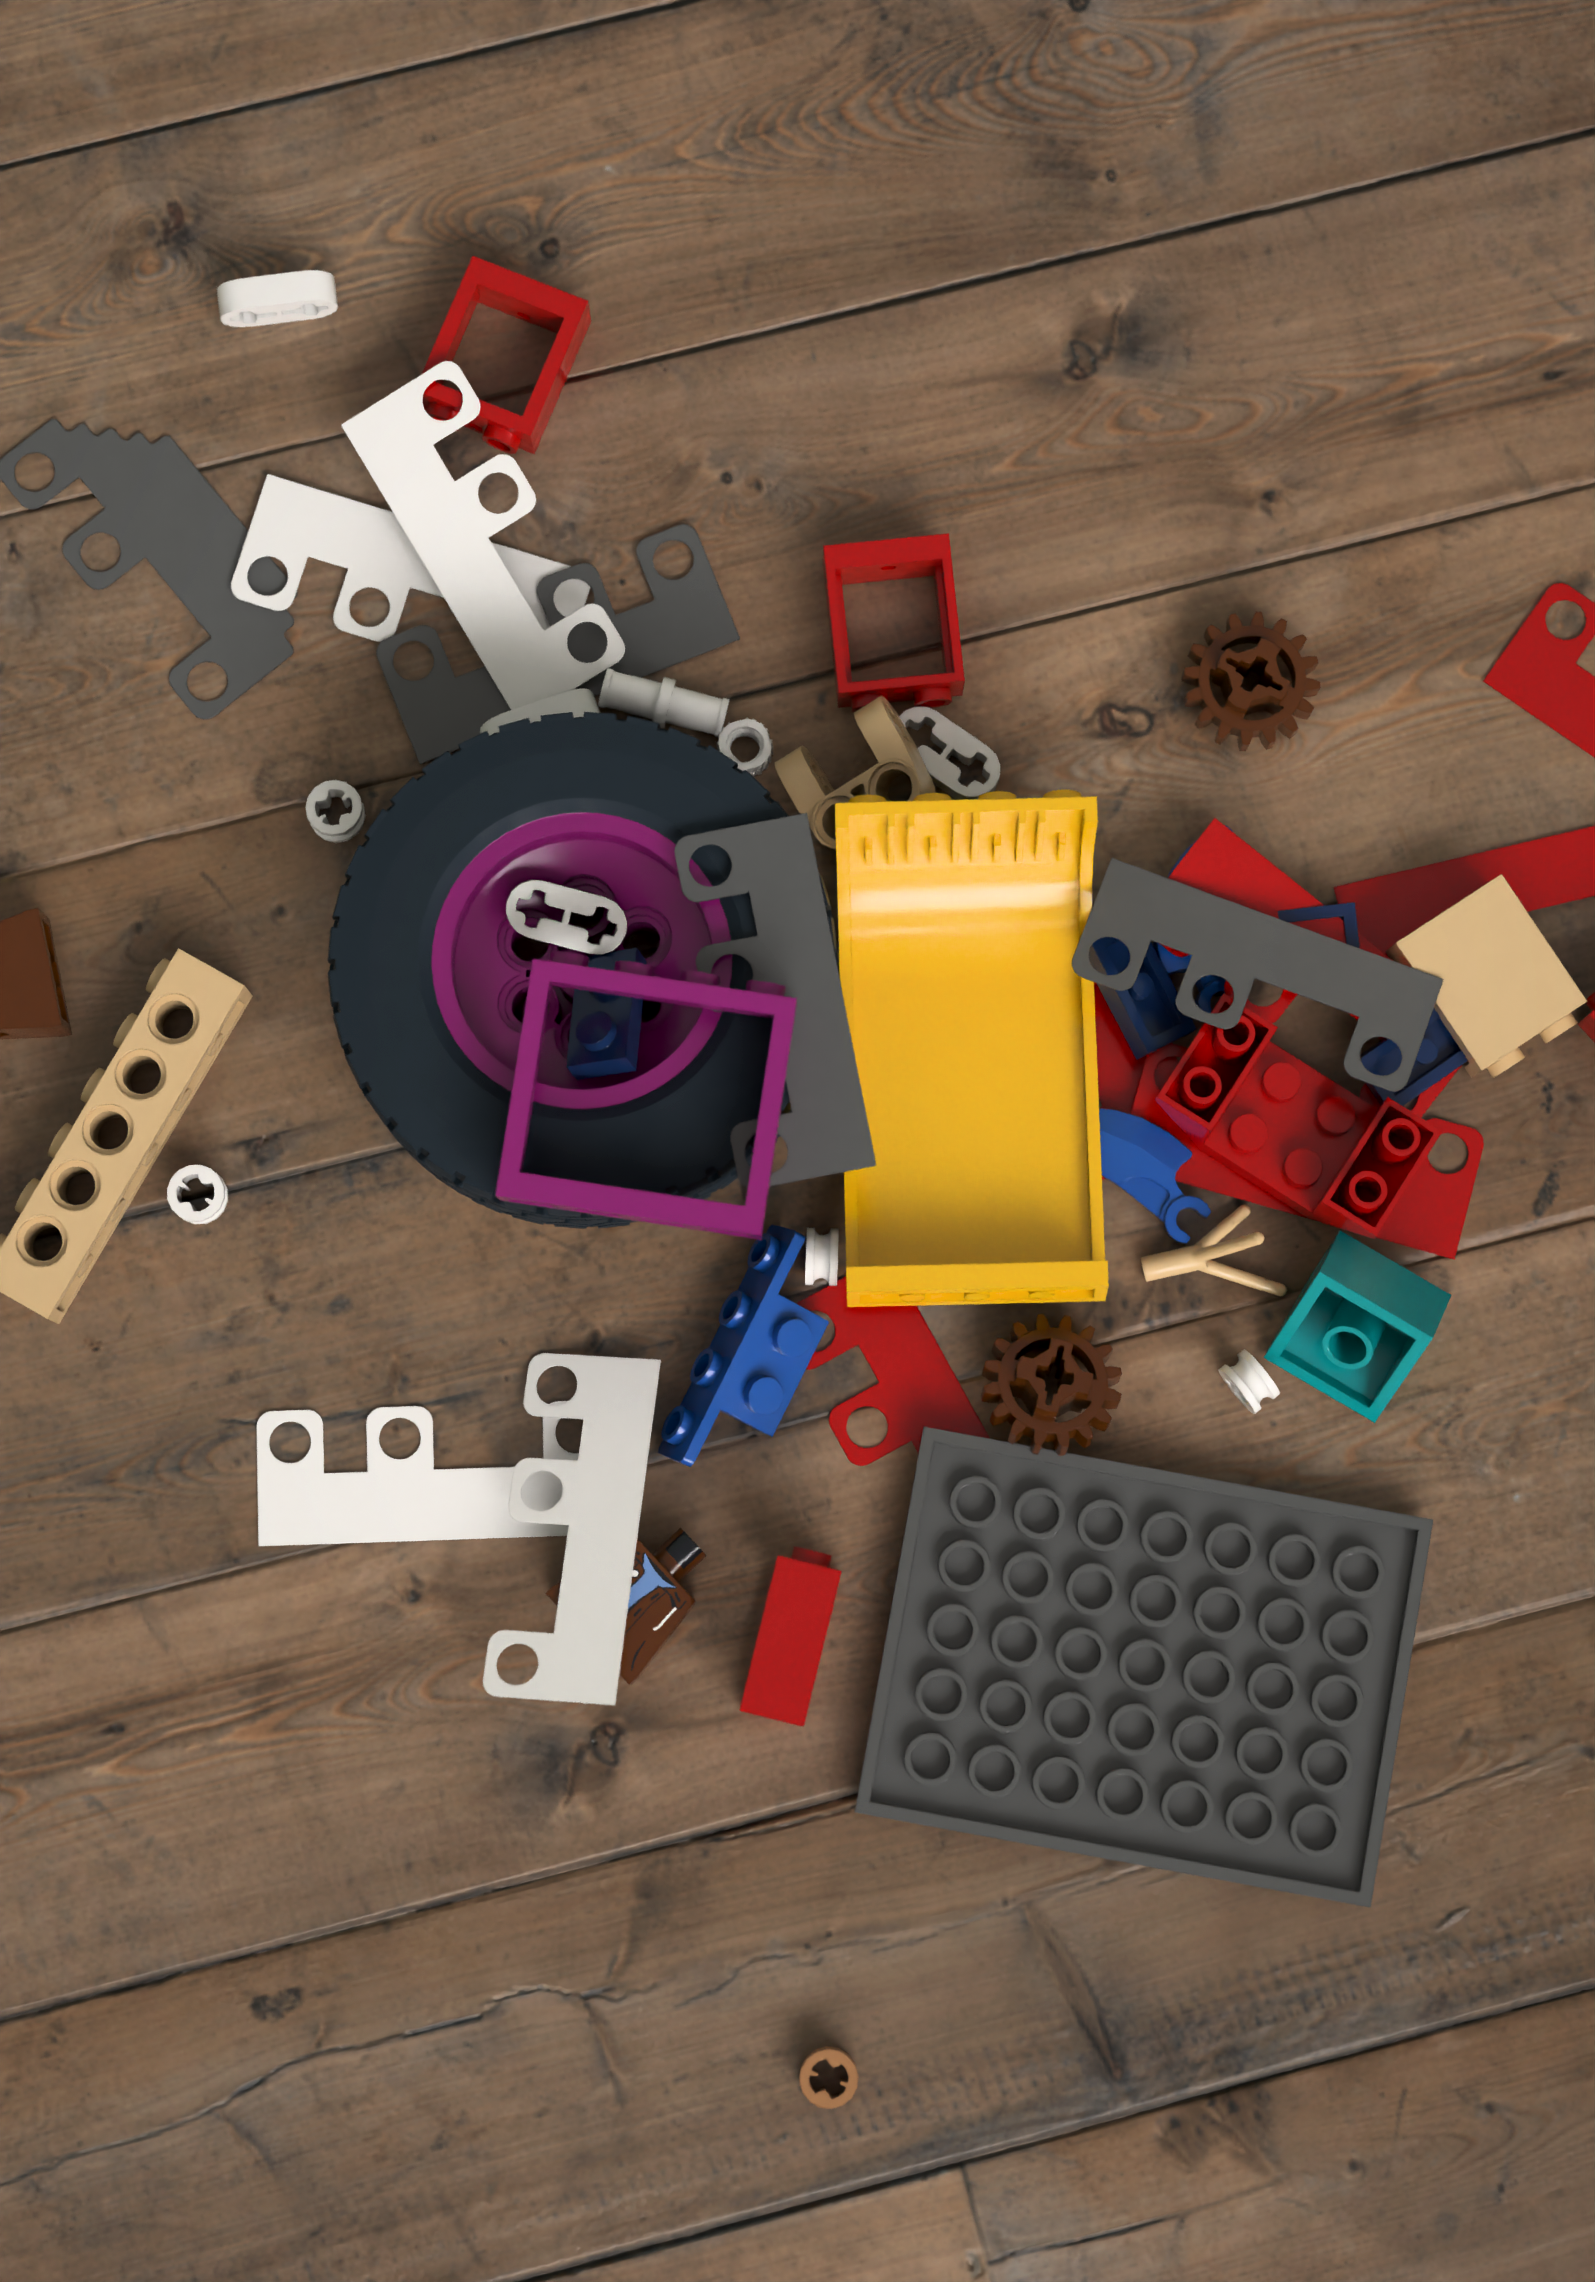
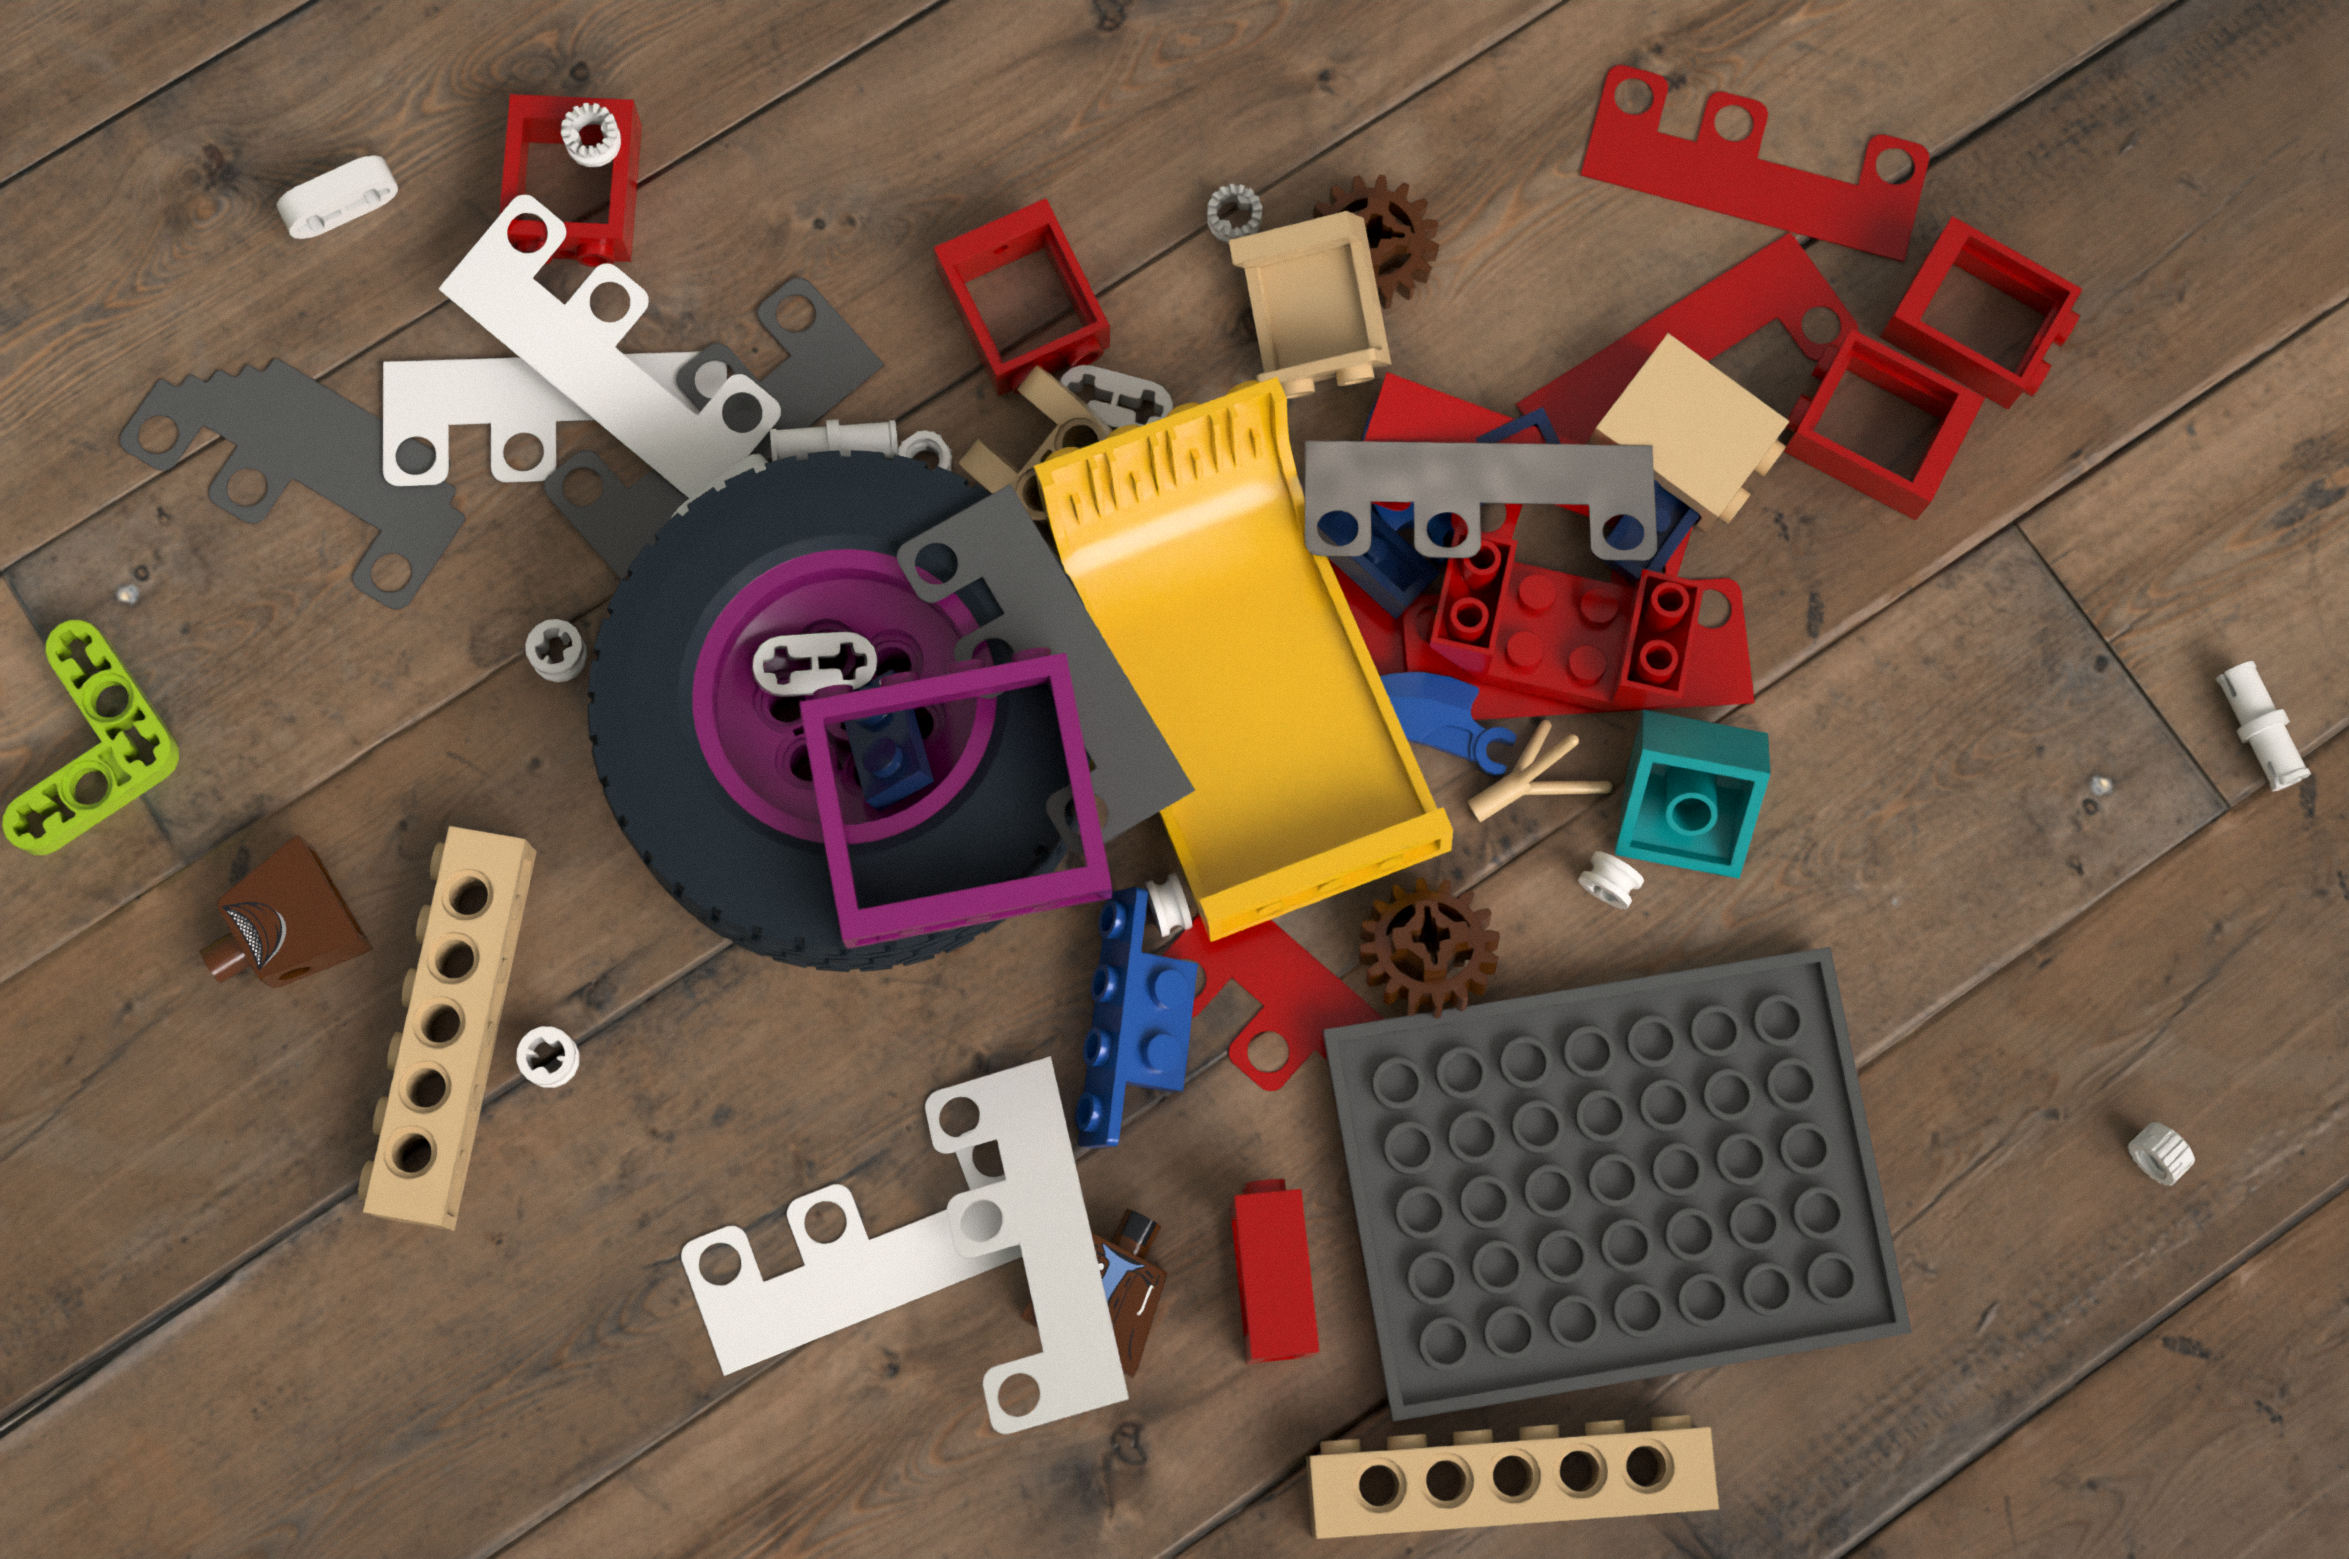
camera: 25 degrees left, 5 degrees down
(515, 325) = (585, 116): none -> white bush
(1099, 1969) = (1682, 1481): none -> tan brick
(1145, 596) = (1245, 201): none -> white bush
(1169, 727) = (1314, 302): none -> tan panel

